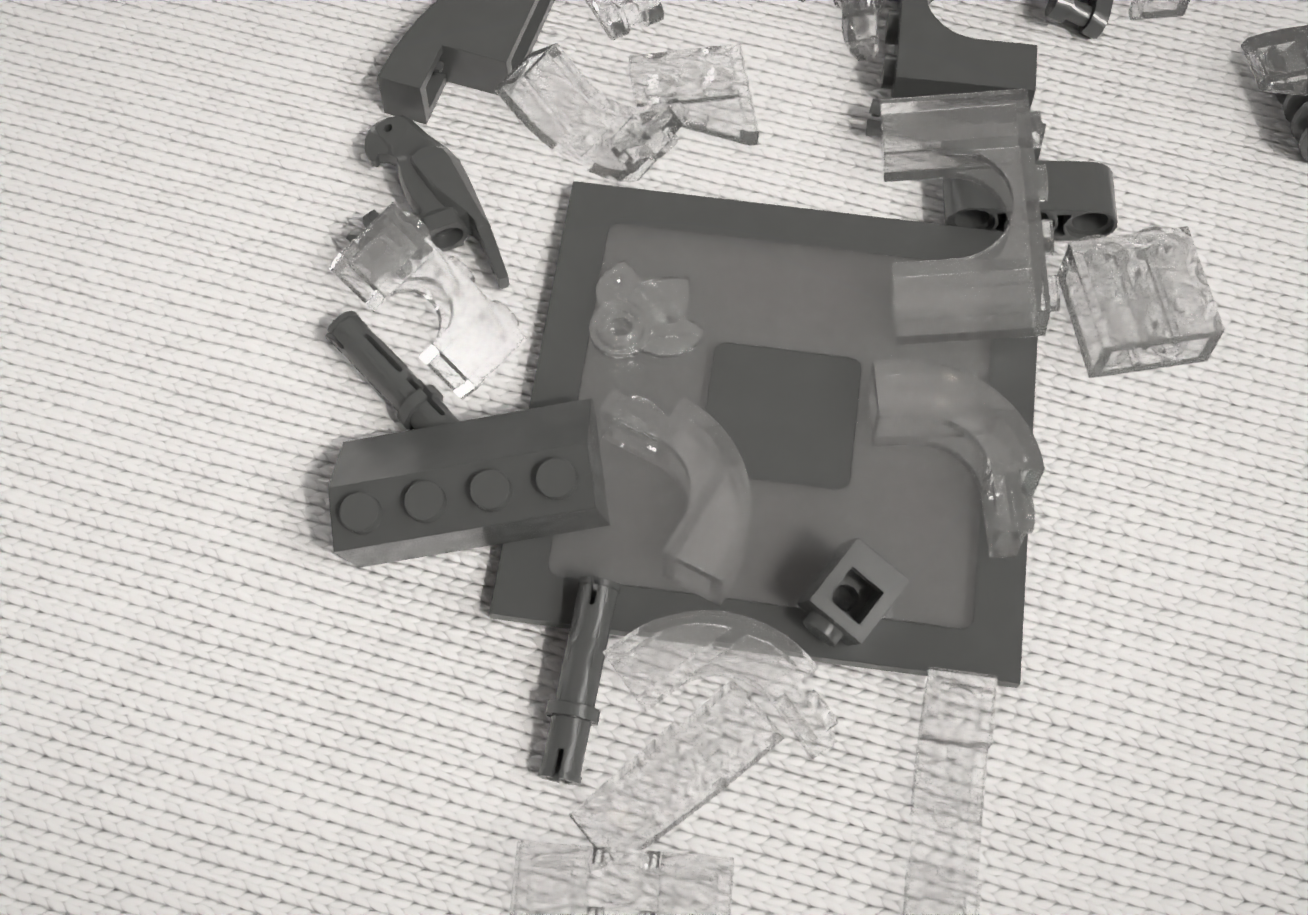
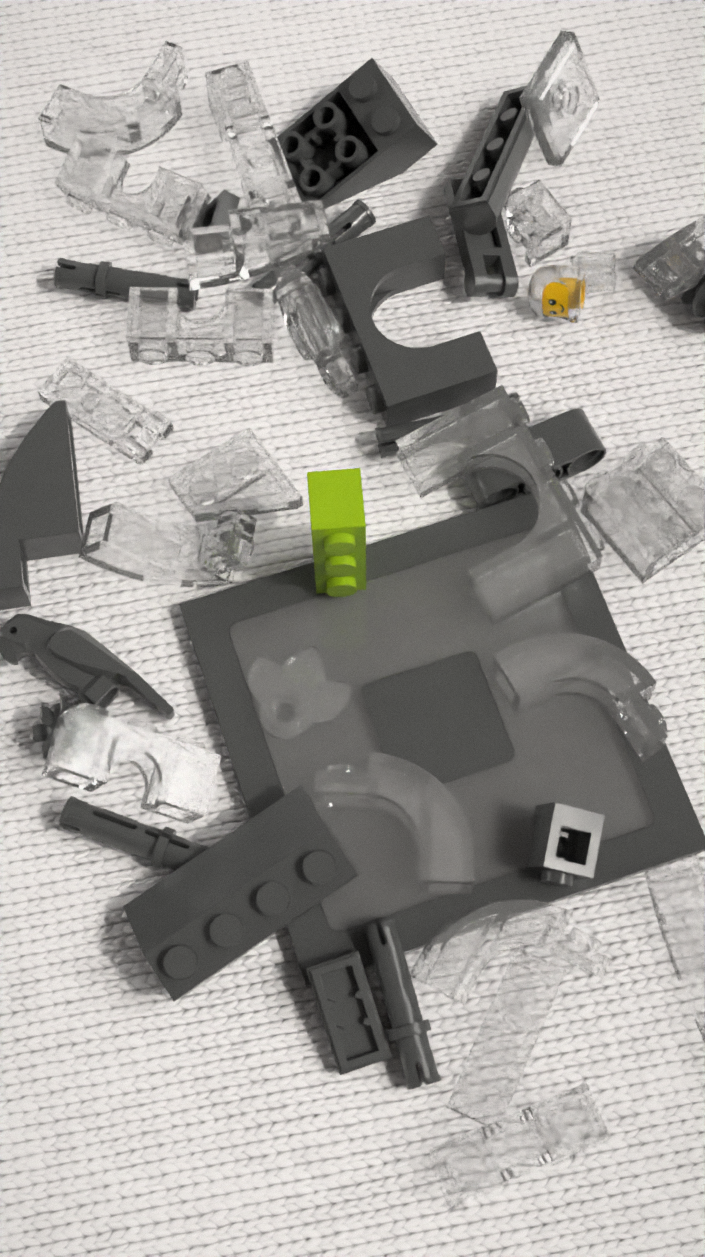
camera: 25 degrees left, 5 degrees up
(518, 662) = (348, 1012): none -> dark grey plate
(762, 153) = (338, 531): none -> lime arch
(1154, 48) = (562, 289): none -> clear piece

